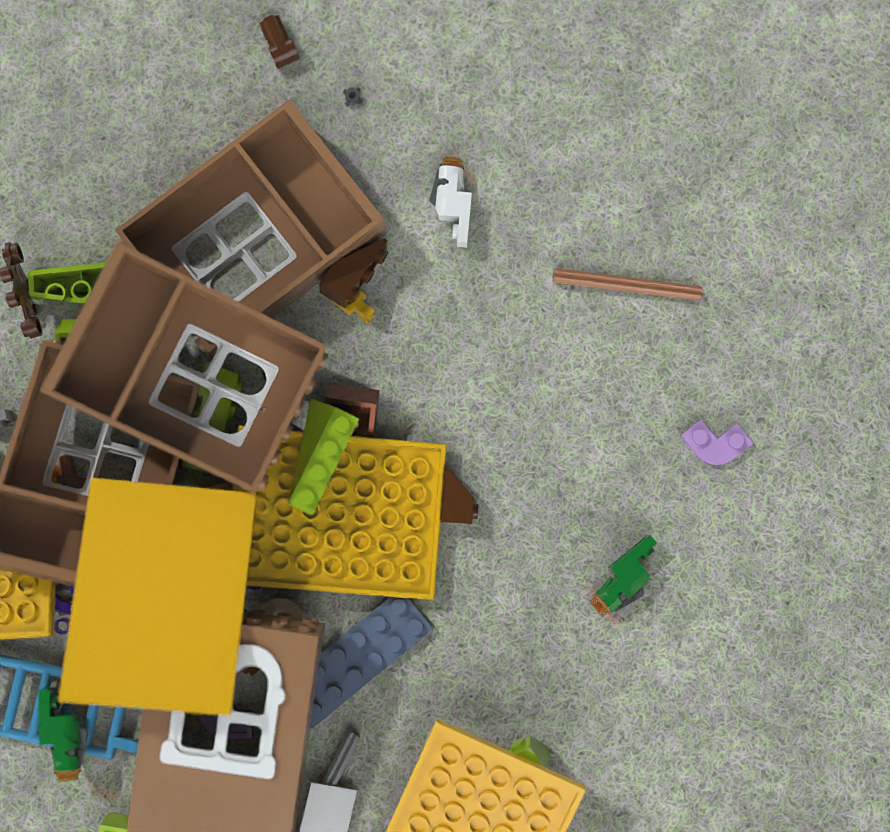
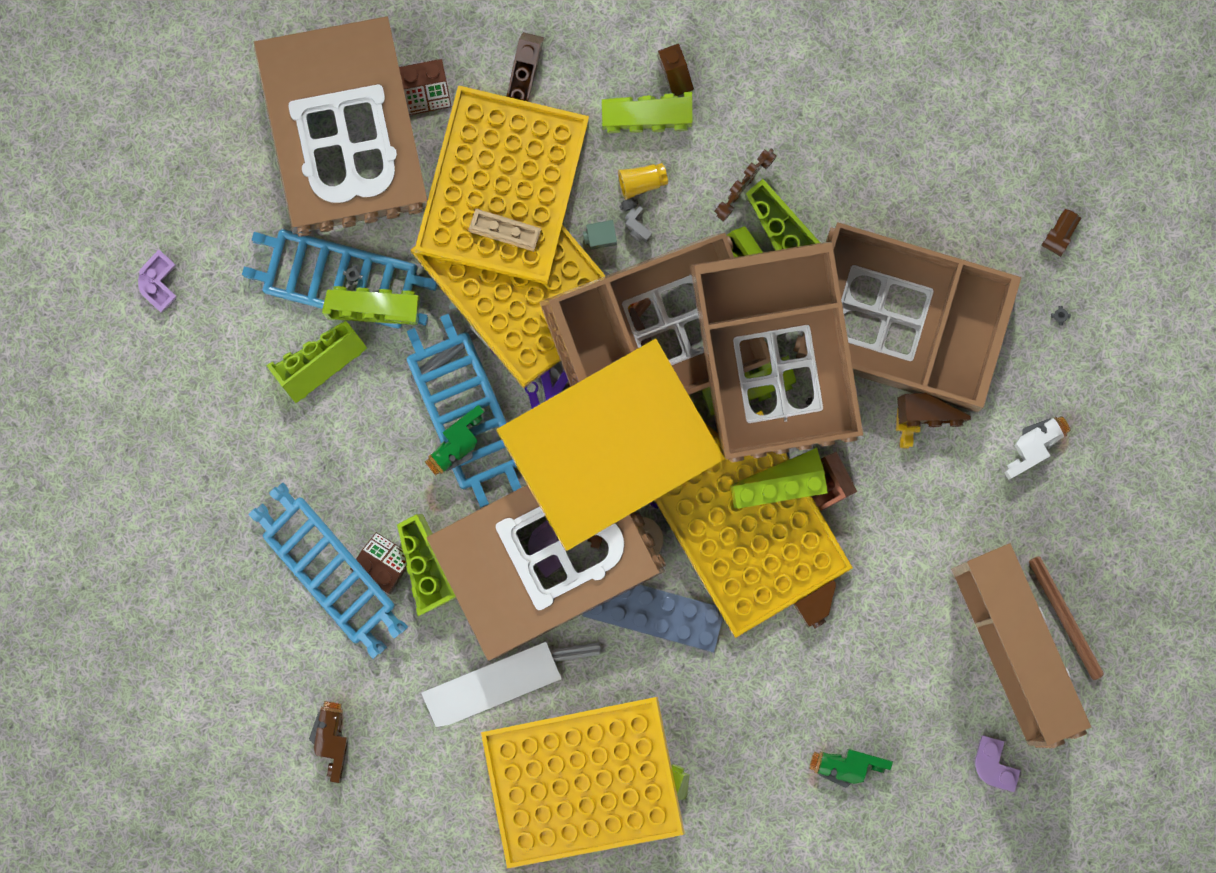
camera: 55 degrees right, 0 degrees up
(636, 340) = (1021, 648): none -> medium nougat panel

